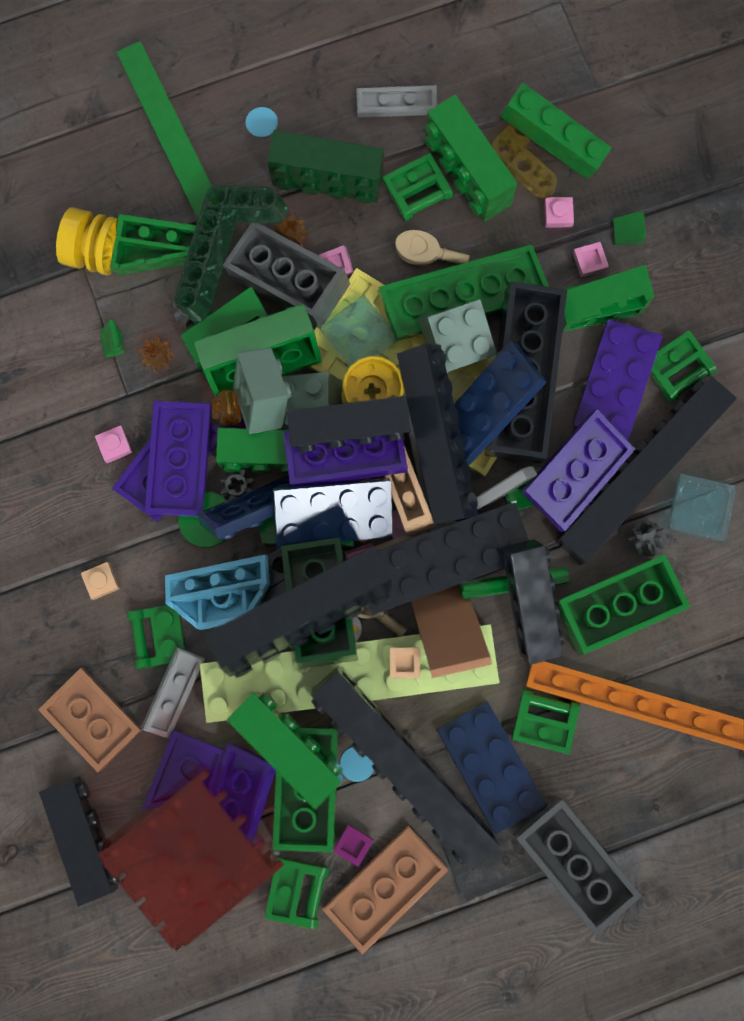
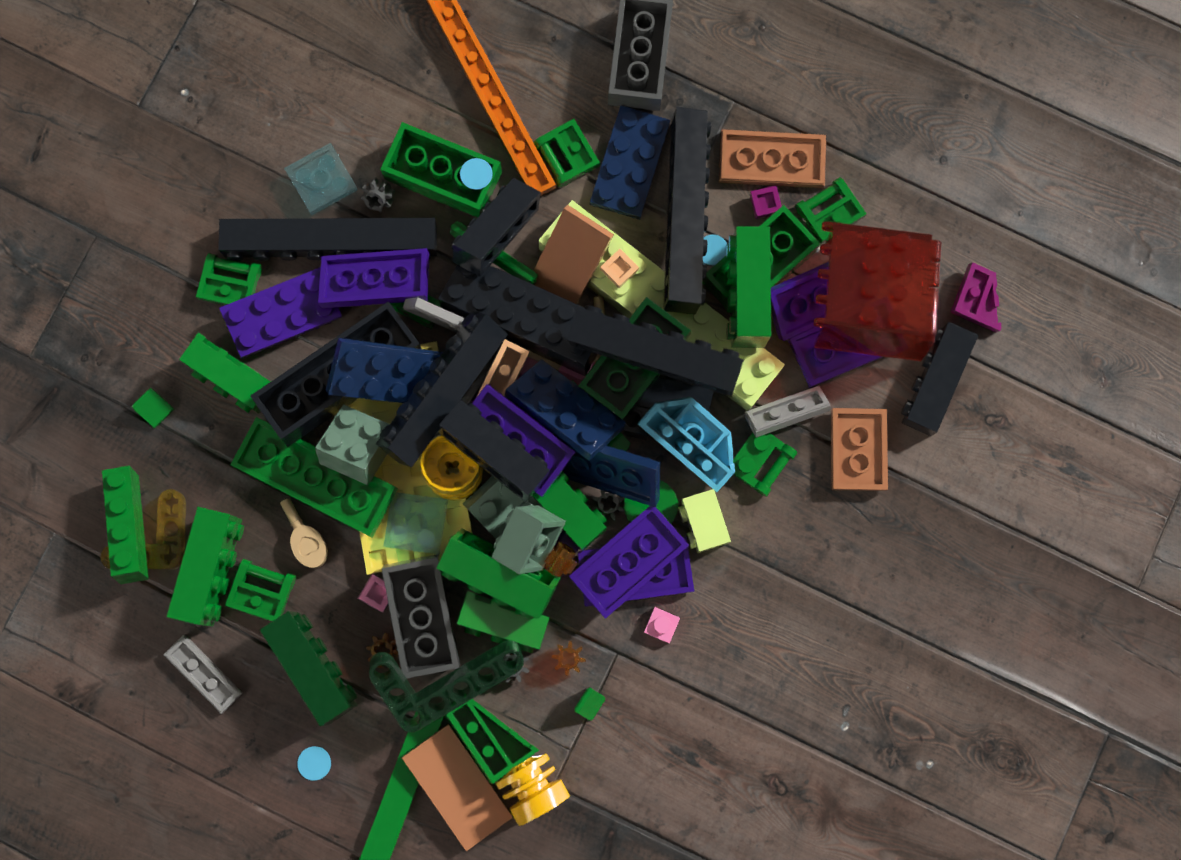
camera: 140 degrees left, 0 degrees up
(100, 580) = (763, 537): light nougat plate -> none
(110, 942) = (978, 298): none -> magenta wing
(147, 194) = (457, 787): none -> nougat tile
(154, 546) = (704, 521): none -> yellowish green brick
(558, 212) = (185, 471): bright pink plate -> none
(590, 259) = (203, 413): bright pink plate -> none
(591, 625) = (476, 173): none -> medium azure sticker

